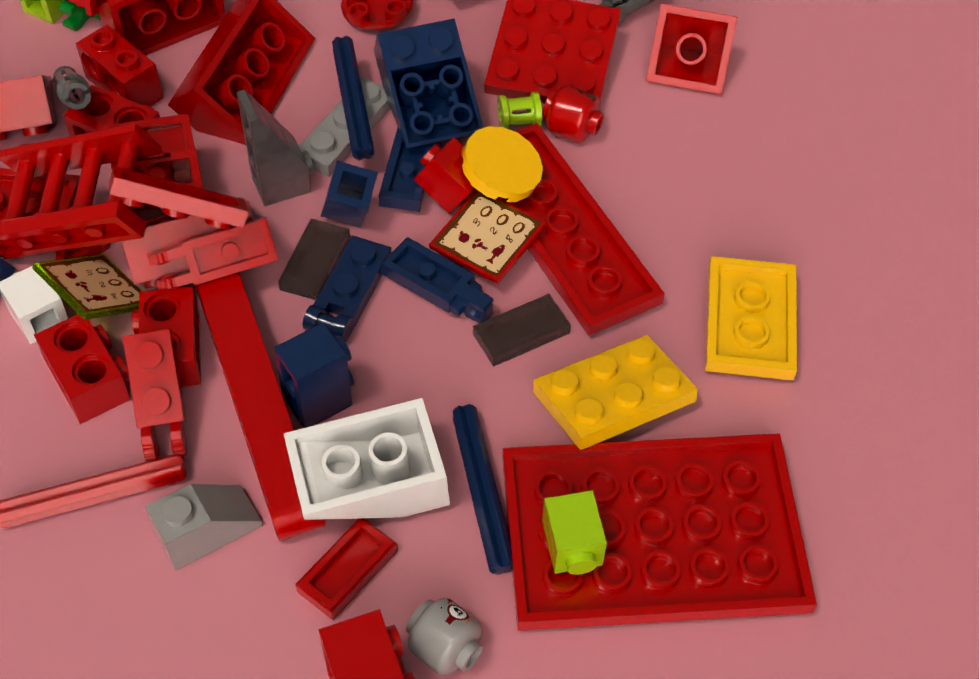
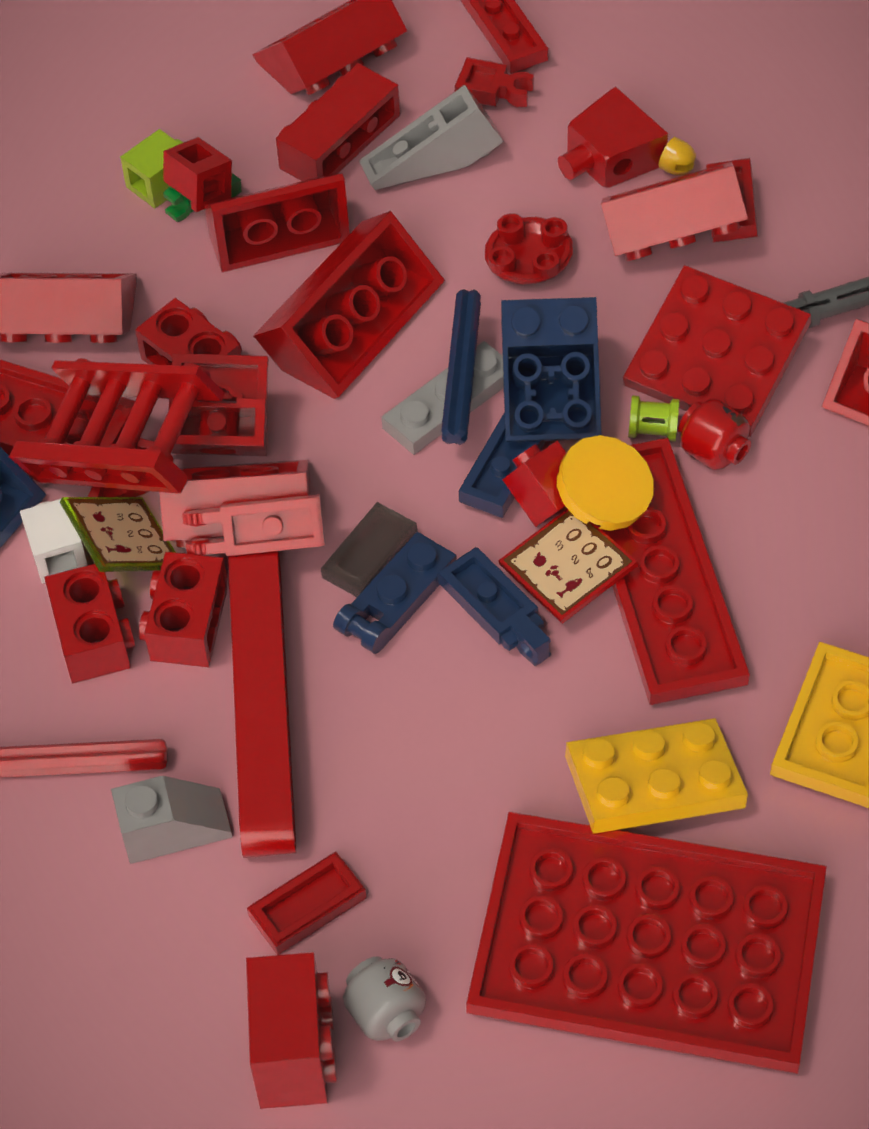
camera: 20 degrees right, 0 degrees up
(77, 84) = (151, 298): dark grey pin -> none
(119, 66) = (211, 281): red brick -> none
(155, 389) = (155, 665): red hinge -> none
(177, 198) = (226, 458): plate -> none
(273, 154) = (353, 420): flat silver slope -> none
(315, 375) = (327, 686): dark blue brick -> none
(349, 194) = (423, 483): dark blue brick -> none
(369, 465) = (356, 798): white slope -> none
(483, 489) = (476, 849): dark blue axle -> none
(521, 329) = (576, 681): clear smoke tile -> none
(574, 533) = (551, 922): lime brick -> none

